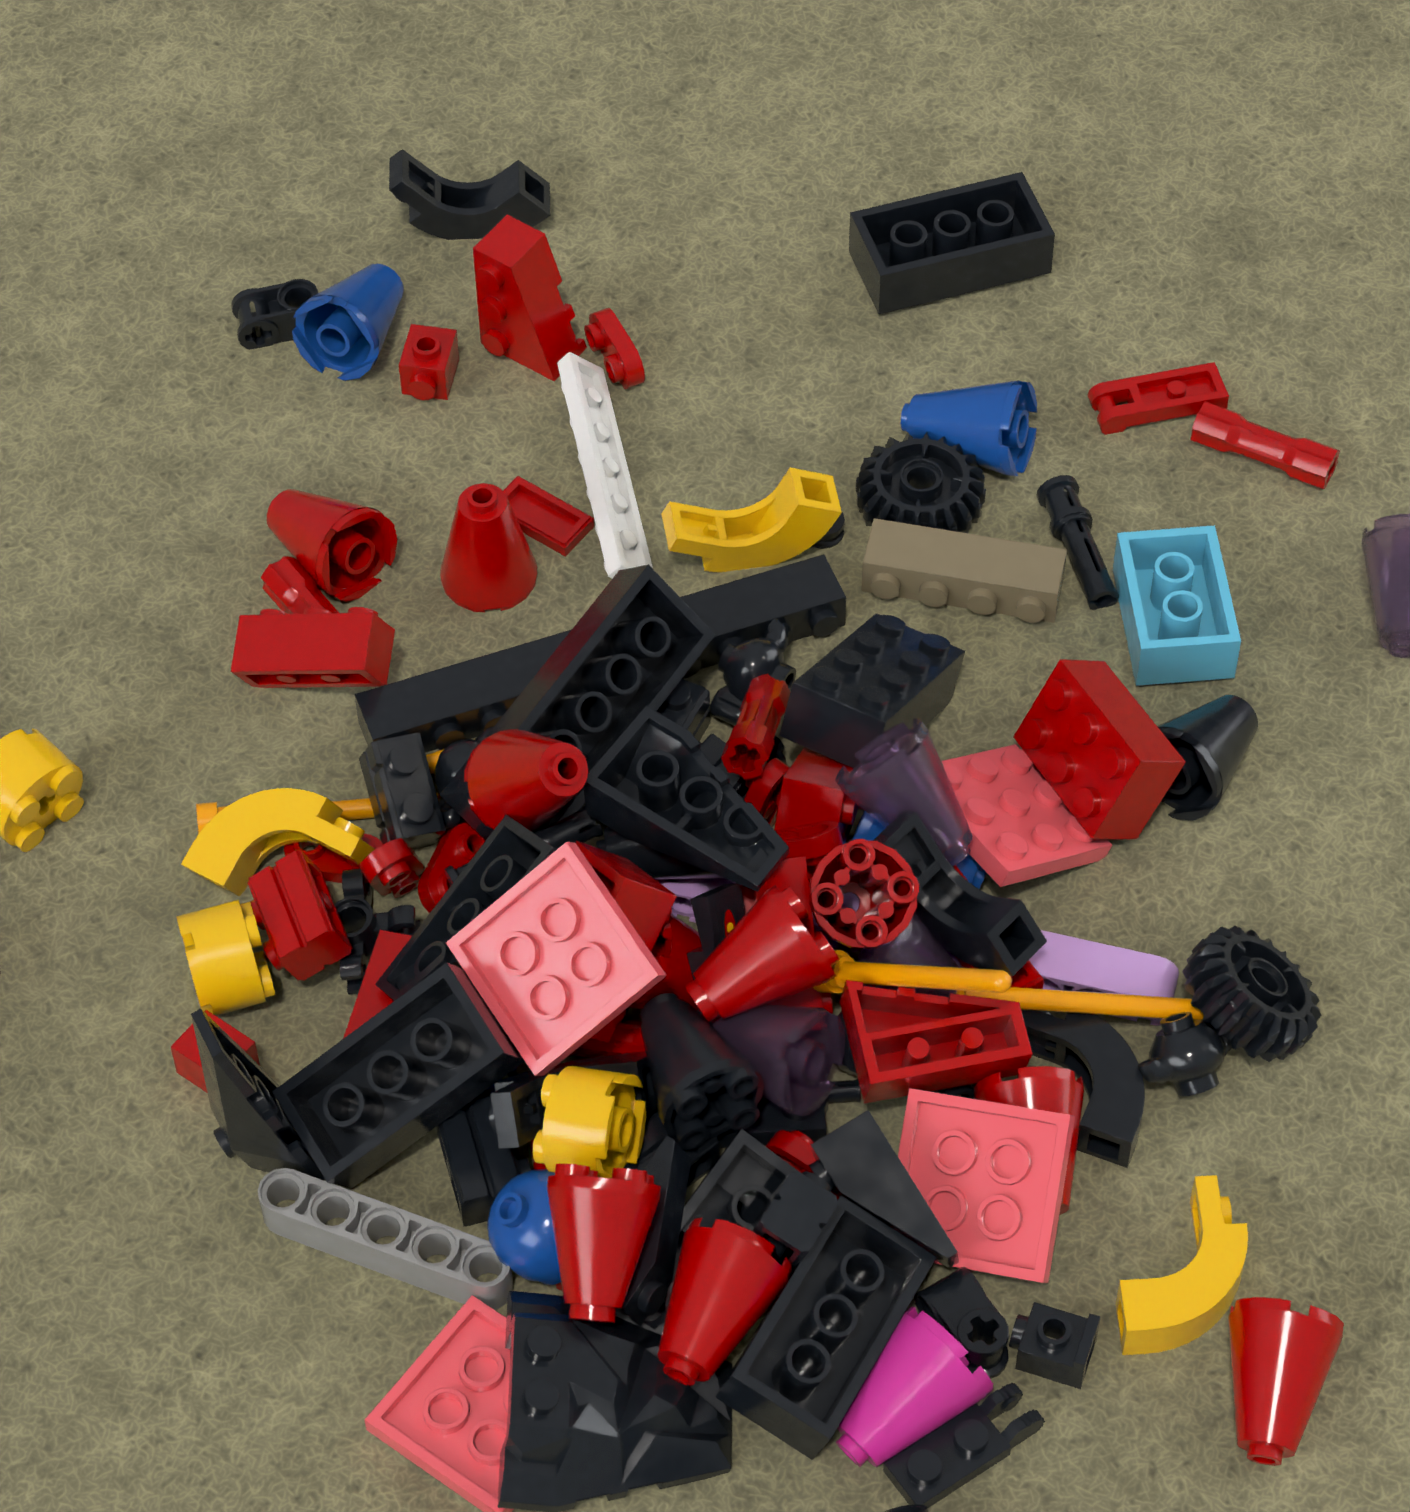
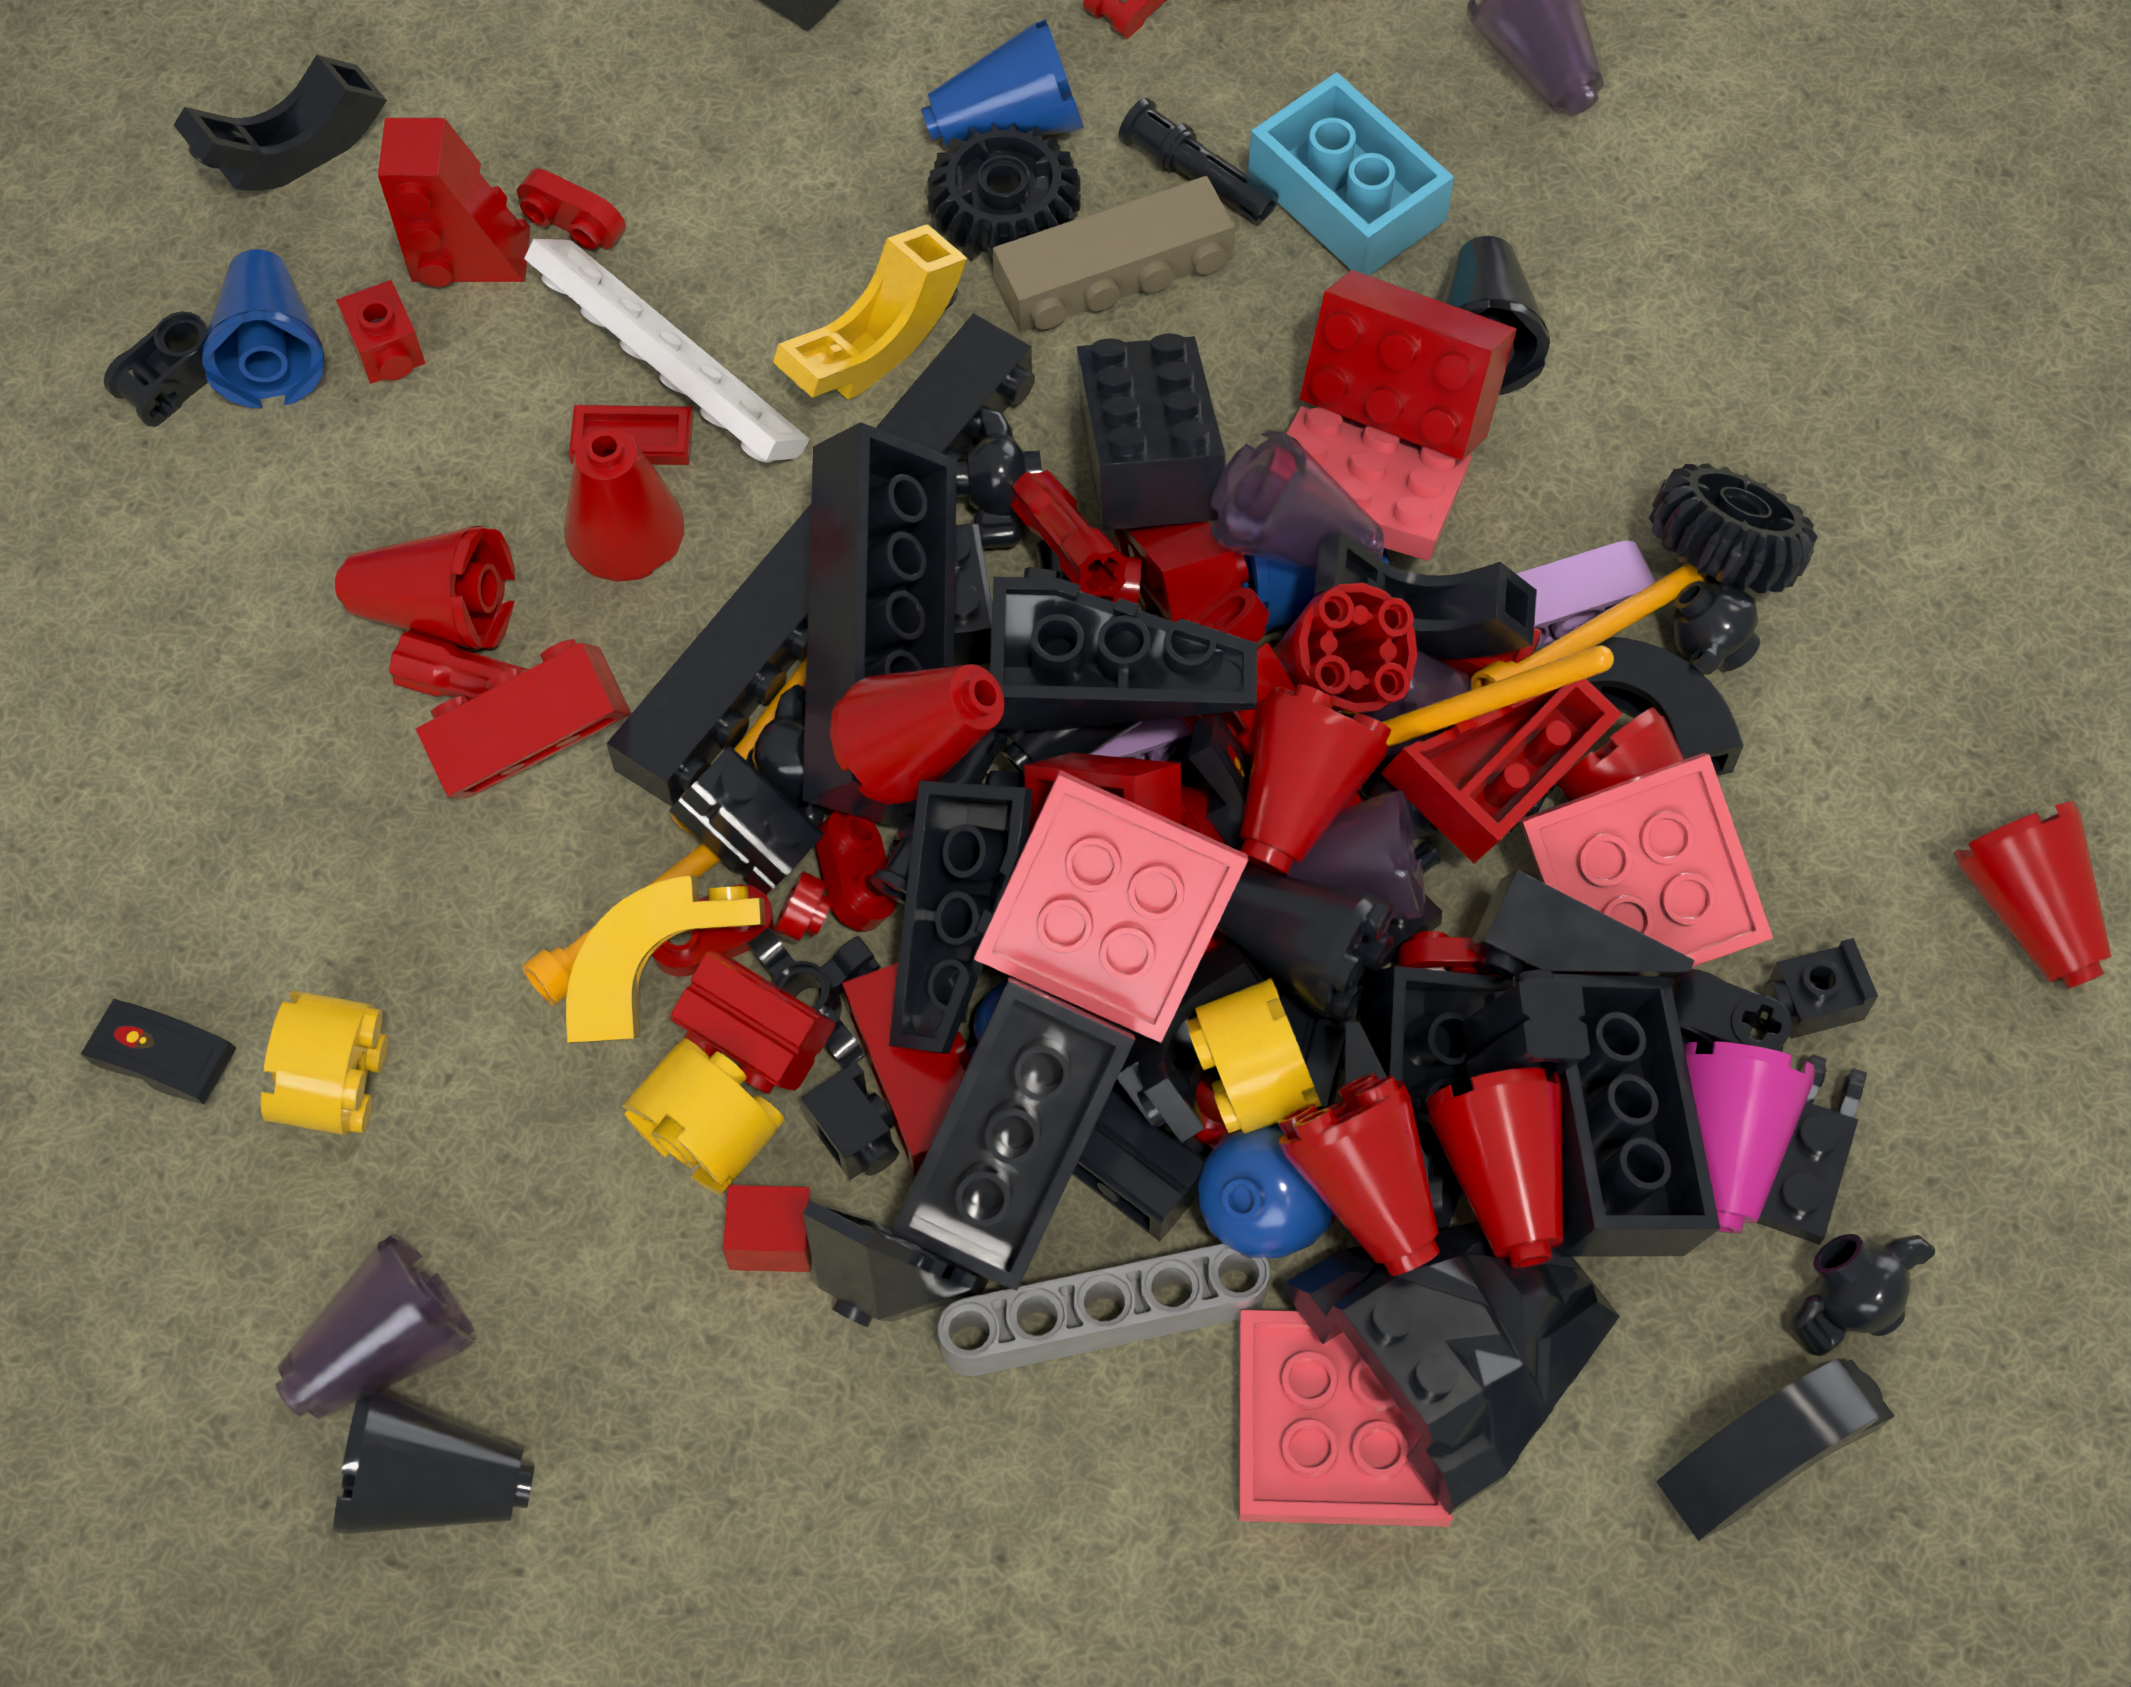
camera: 35 degrees left, 10 degrees up
(319, 1019) = (851, 1124): none -> black brick
(1185, 1305) = (1906, 838): yellow arch -> none

